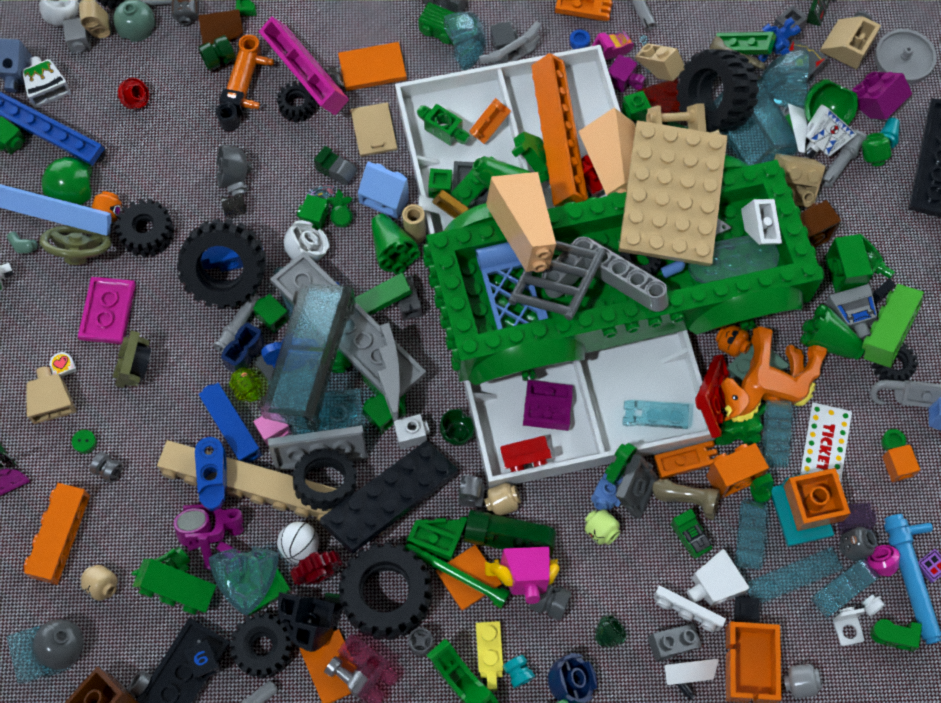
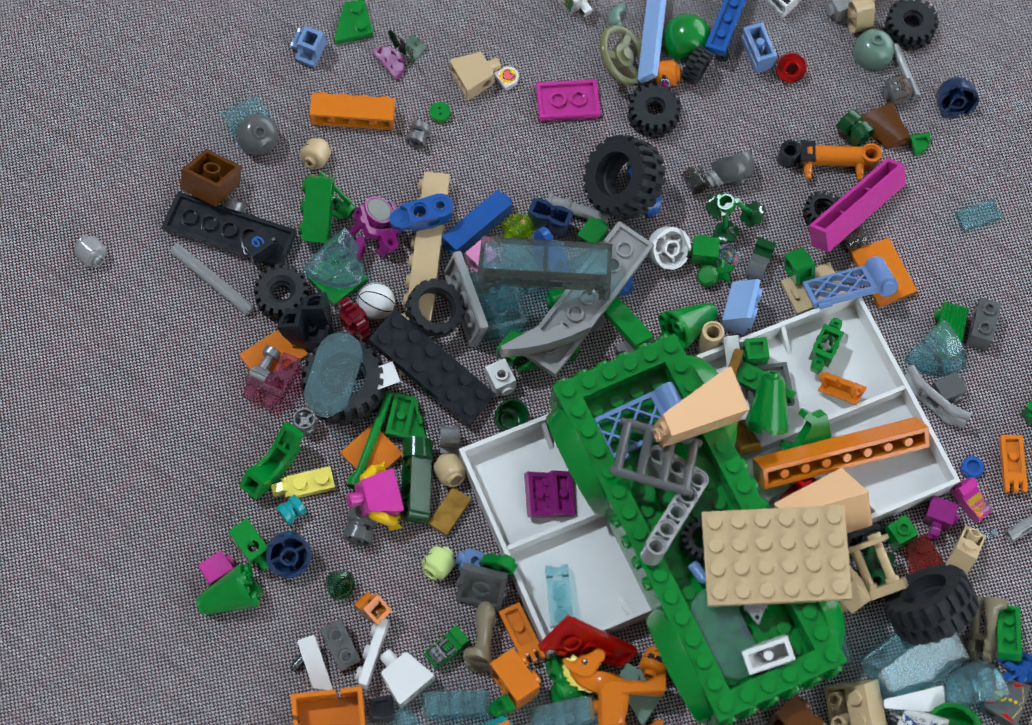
camera: 75 degrees right, 0 degrees up
(103, 116) = (758, 47): none -> medium blue brick
(107, 175) = (696, 65): none -> black tyre
(133, 361) = (518, 129): olive piece -> none
(279, 172) = (724, 204): none -> dark green plant
(351, 132) = (799, 266): none -> green brick
(382, 67) = (874, 275): none -> medium blue piece
(384, 595) = (333, 374): none -> clear light blue tile
(394, 538) = (389, 375): none -> white sticker
(525, 452) = (495, 479): red bracket -> none
(546, 508) = (449, 511): none -> pearl gold tile
(641, 602) = (371, 606): none -> orange leg

